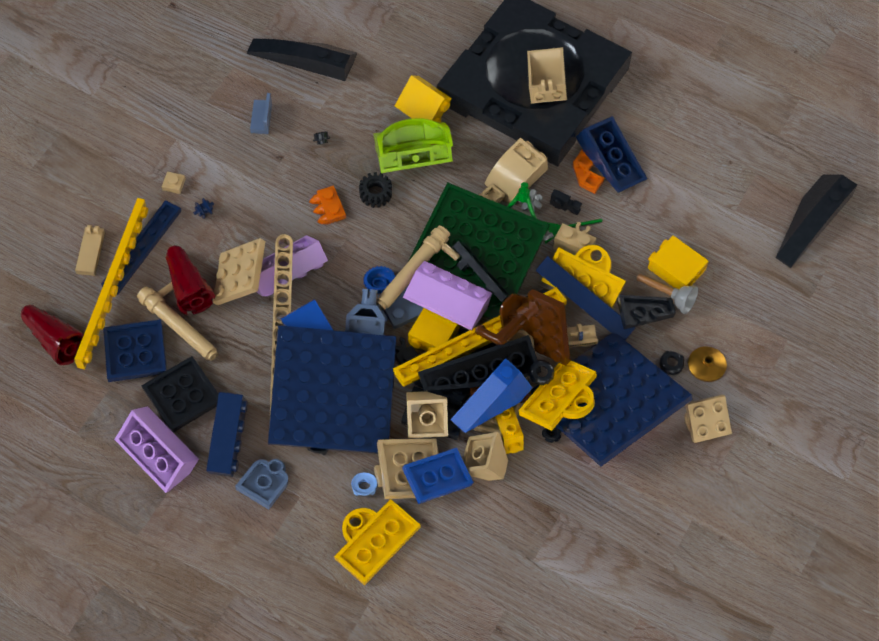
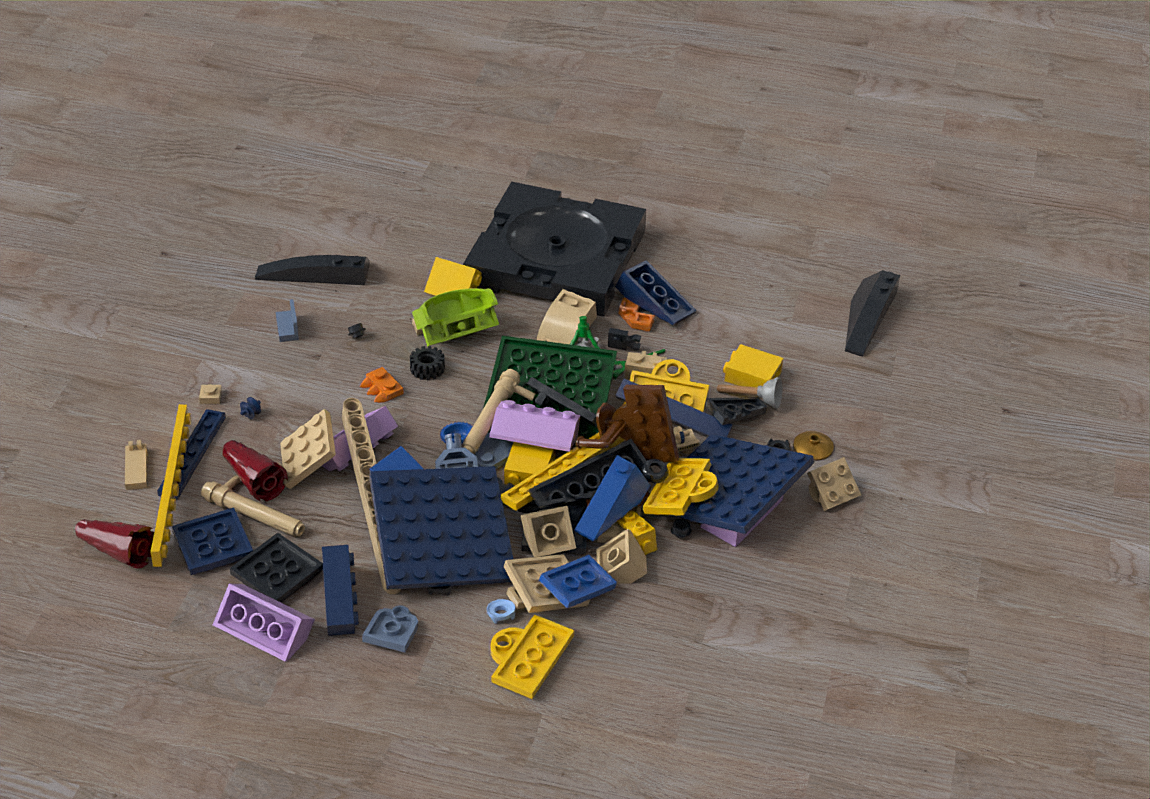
camera: 15 degrees left, 20 degrees down
(546, 75) = (571, 237): tan piece -> none

